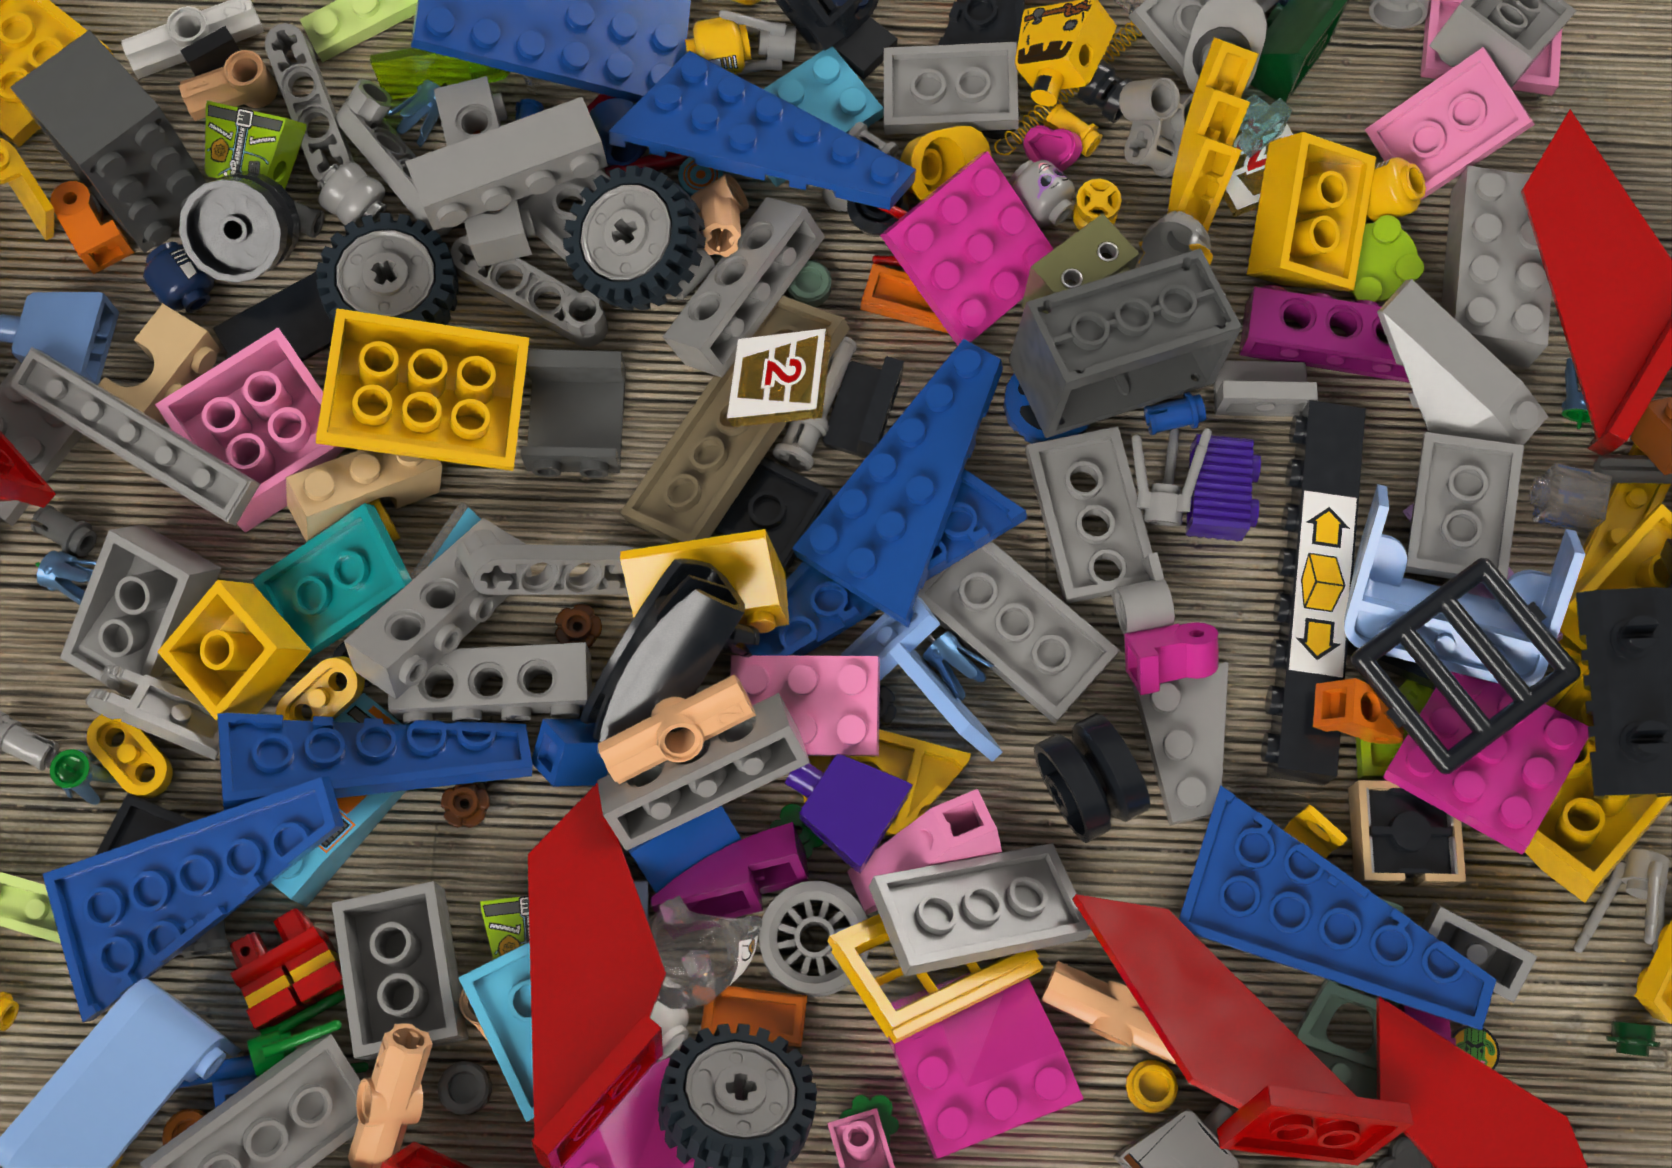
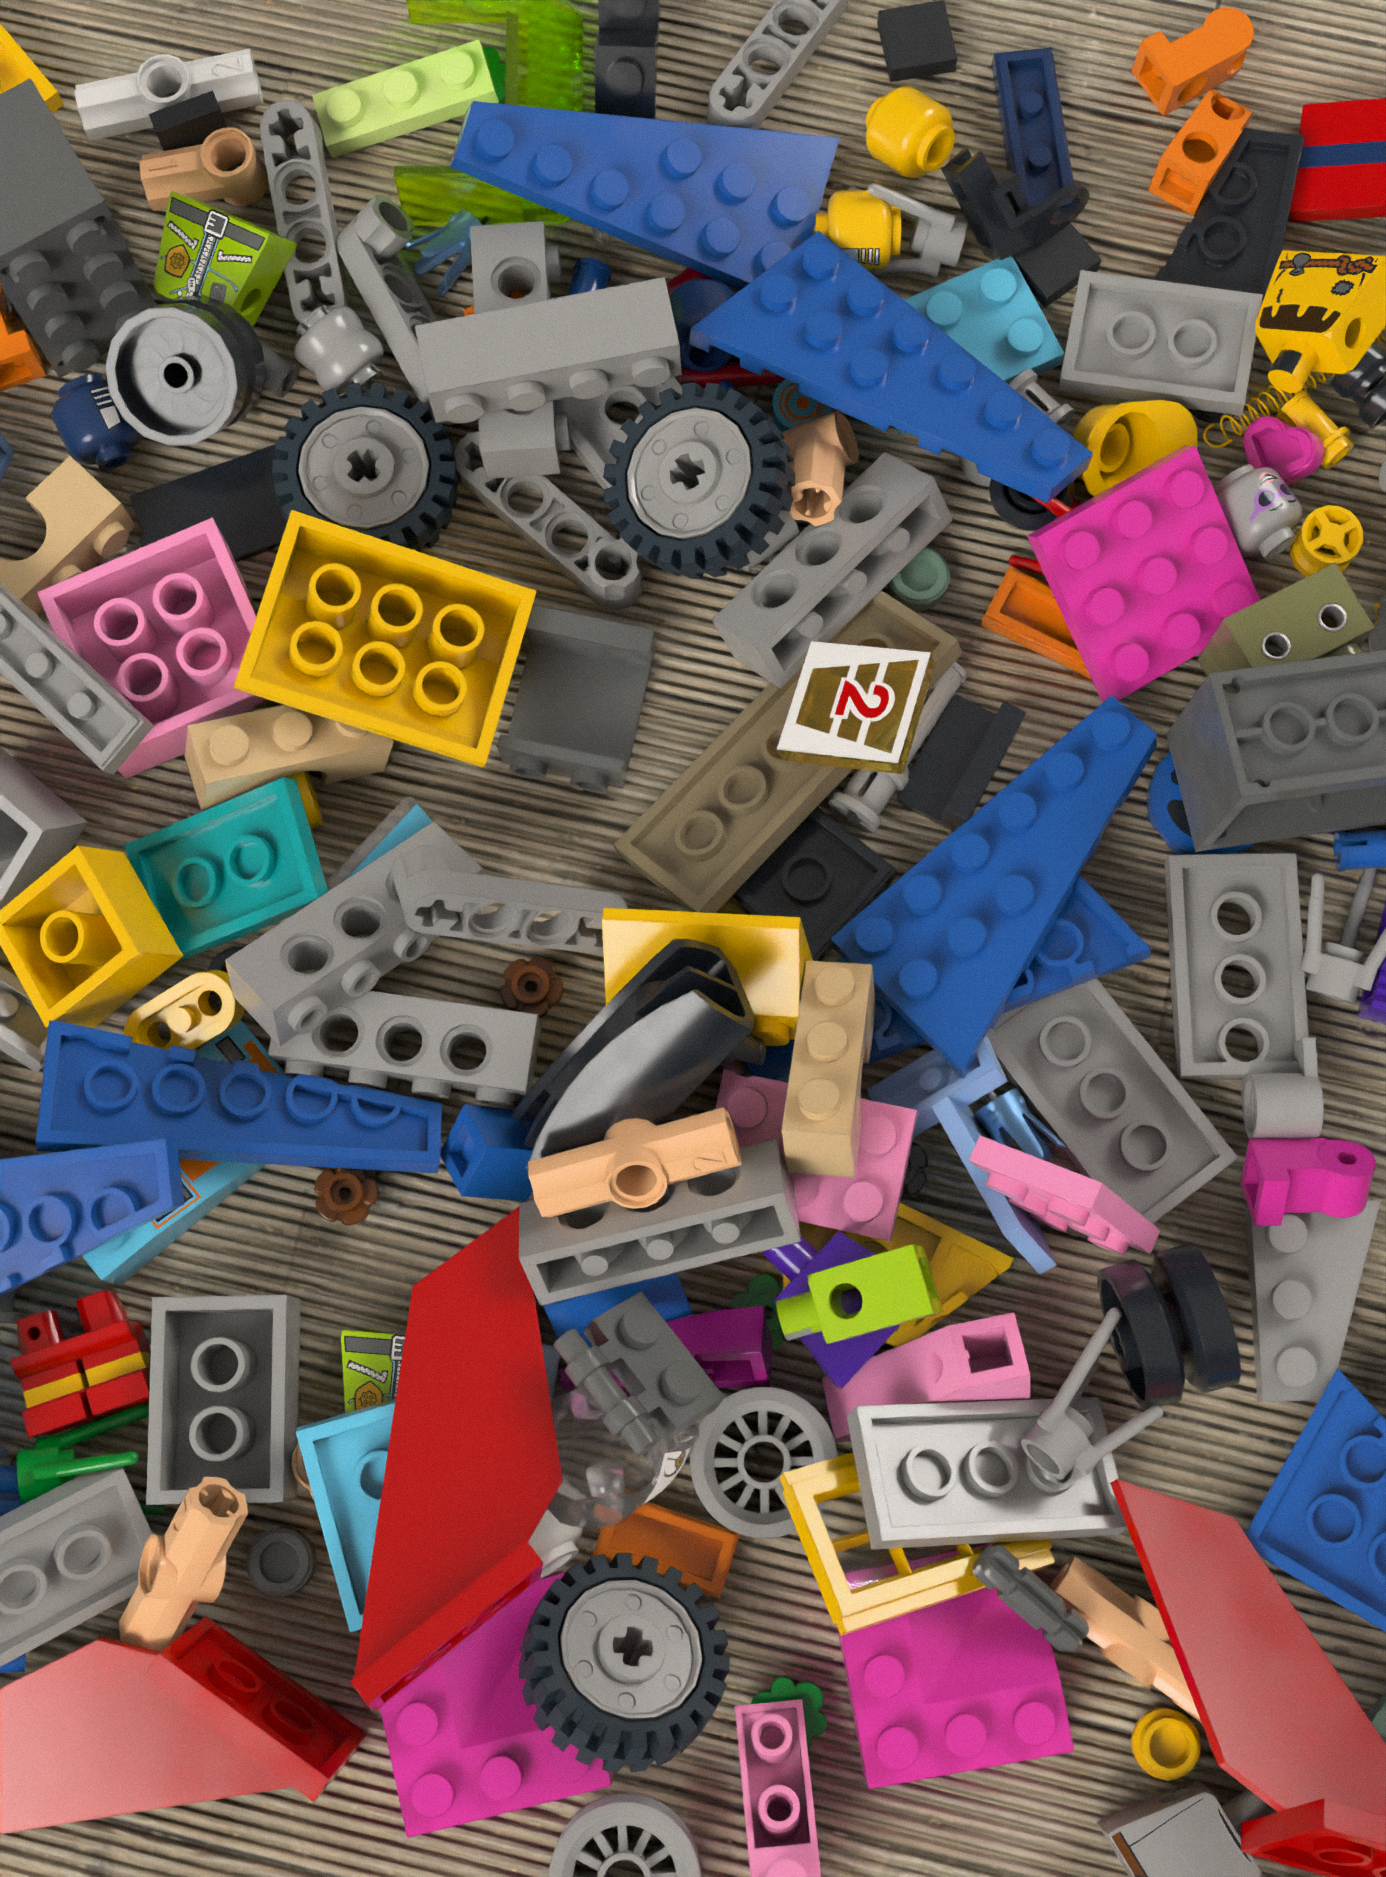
camera: 15 degrees right, 5 degrees up
(719, 877) = (650, 1364): none -> dark grey plate
(805, 636) = (826, 1069): none -> tan arch
(885, 787) = (893, 1289): none -> lime torso
(997, 695) = (1064, 1198): none -> bright pink plate
(1029, 866) = (1062, 1433): none -> light grey plant
(1029, 993) = (1030, 1598): none -> dark grey axle

